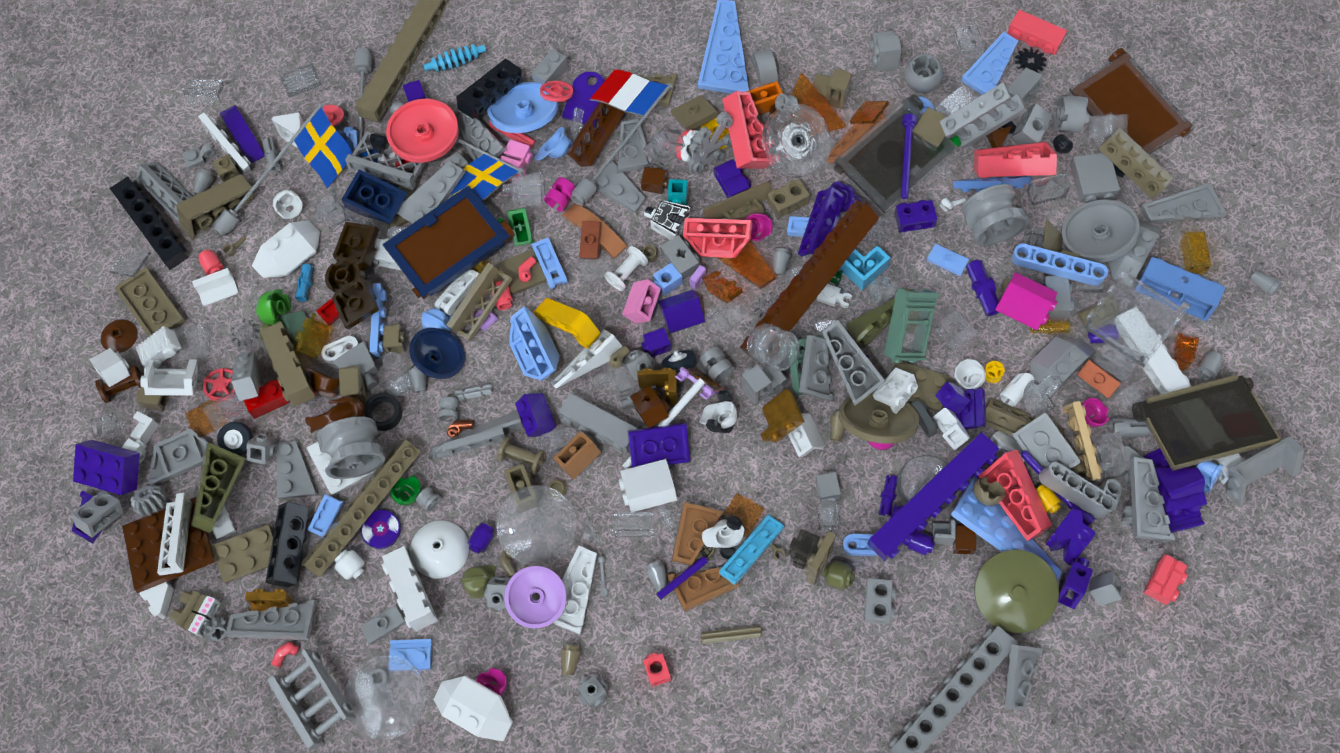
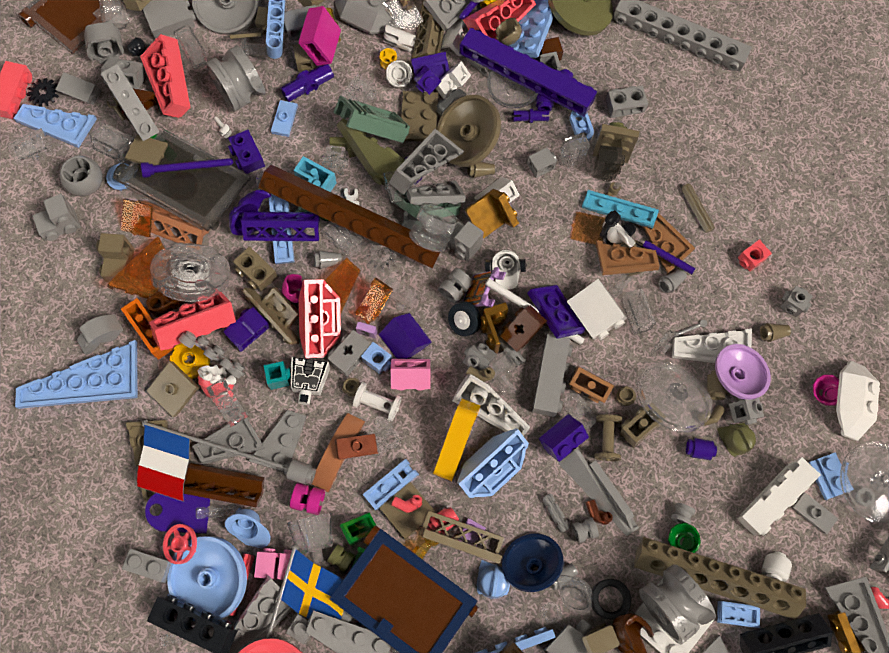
camera: 115 degrees left, 5 degrees up
(381, 529) = (729, 549): dark purple tile -> none
(394, 339) = (527, 619): dark tan brick -> none
(447, 558) = (713, 495): white dish -> none
(456, 292) = (455, 570): white plate -> none
(500, 209) = (341, 558): none -> olive wheel
(654, 180) = (265, 405): reddish brown brick -> none
(656, 343) = (449, 348): dark purple brick -> none
(783, 101) = (150, 295): light grey wheel -> none
(897, 389) = (428, 121): white bracket -> none
(968, 184) = (198, 88): medium blue plate -> none

